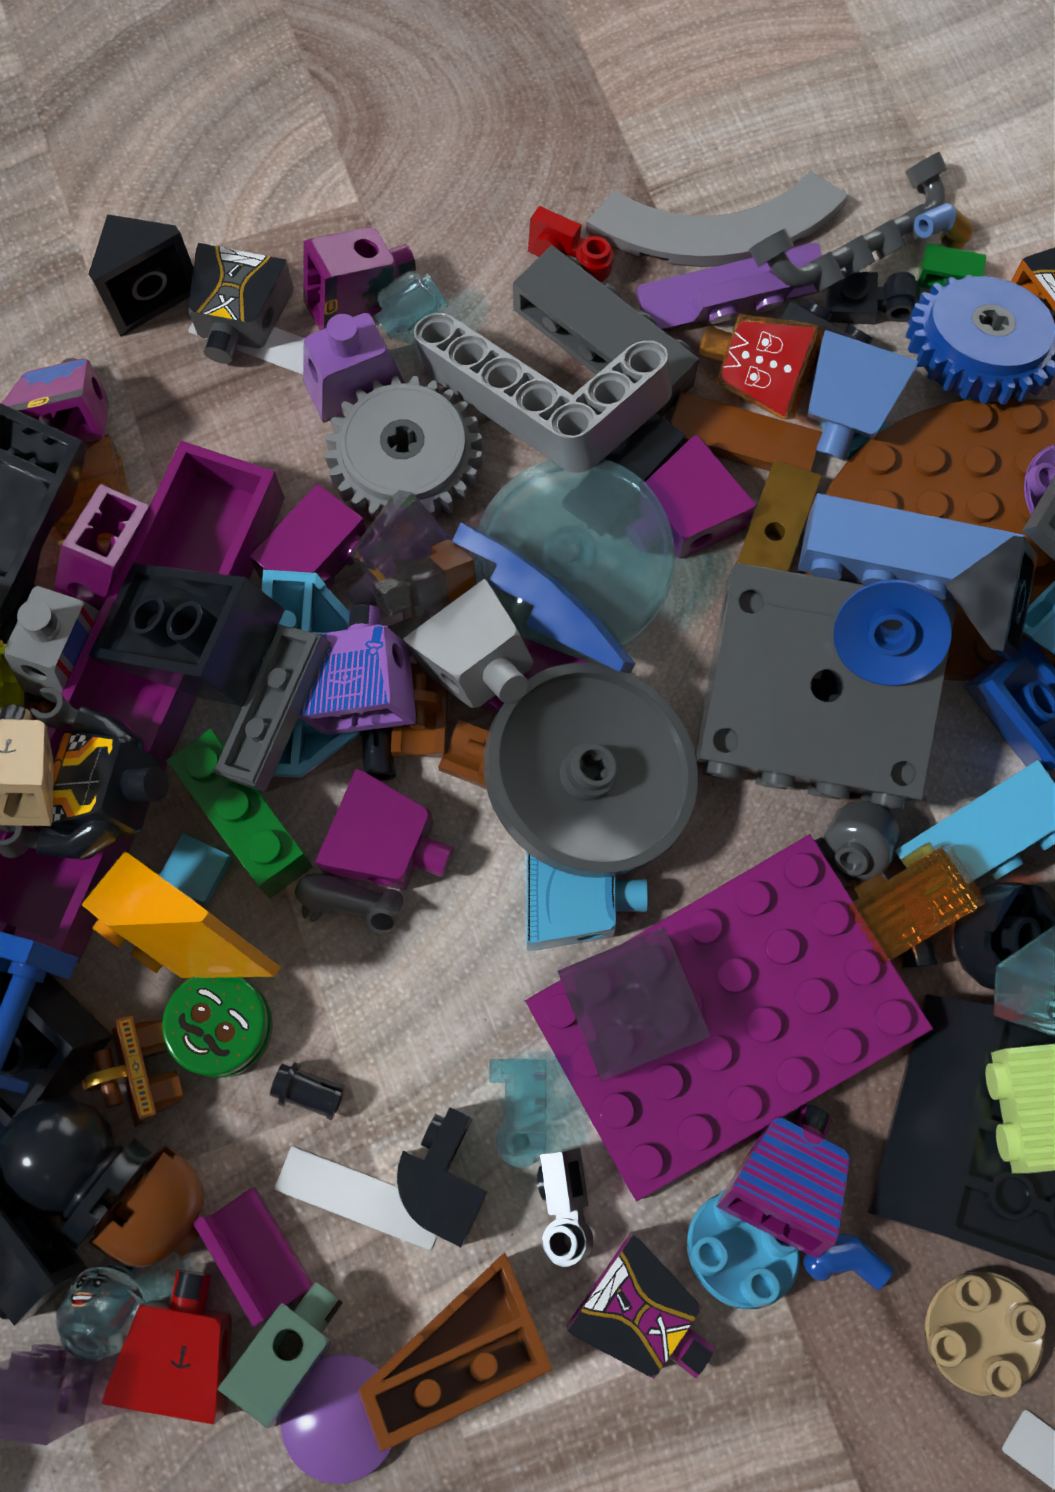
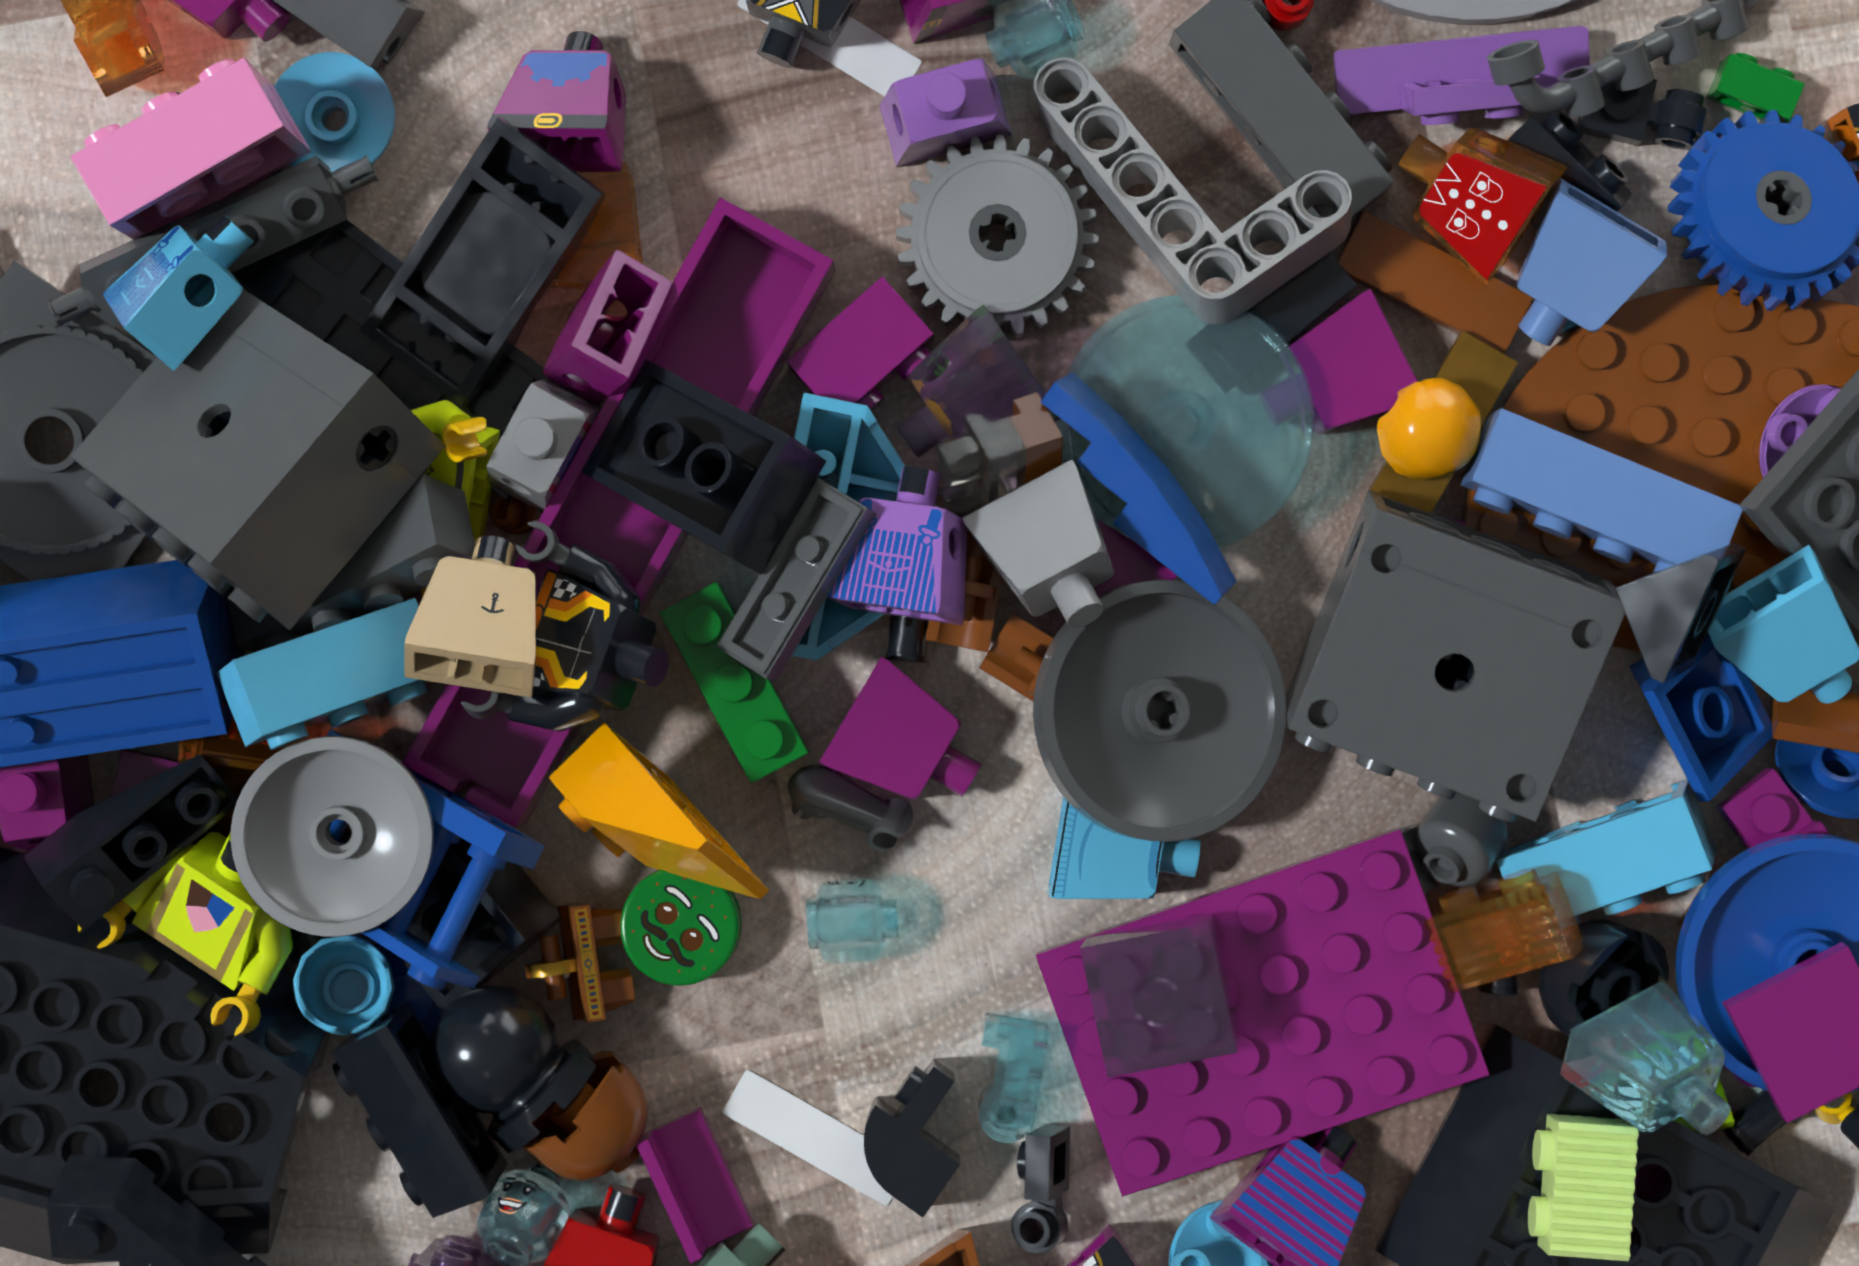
camera: 10 degrees right, 15 degrees up
(196, 868) = (672, 734): medium azure tile -> none
(306, 1091) = (773, 1015): black pin -> none
(362, 997) = (851, 921): none -> clear light blue head
(764, 526) = (1430, 429): none -> light orange hair
(897, 654) = (1540, 637): blue dish -> none
(945, 218) = (1762, 24): arm -> none

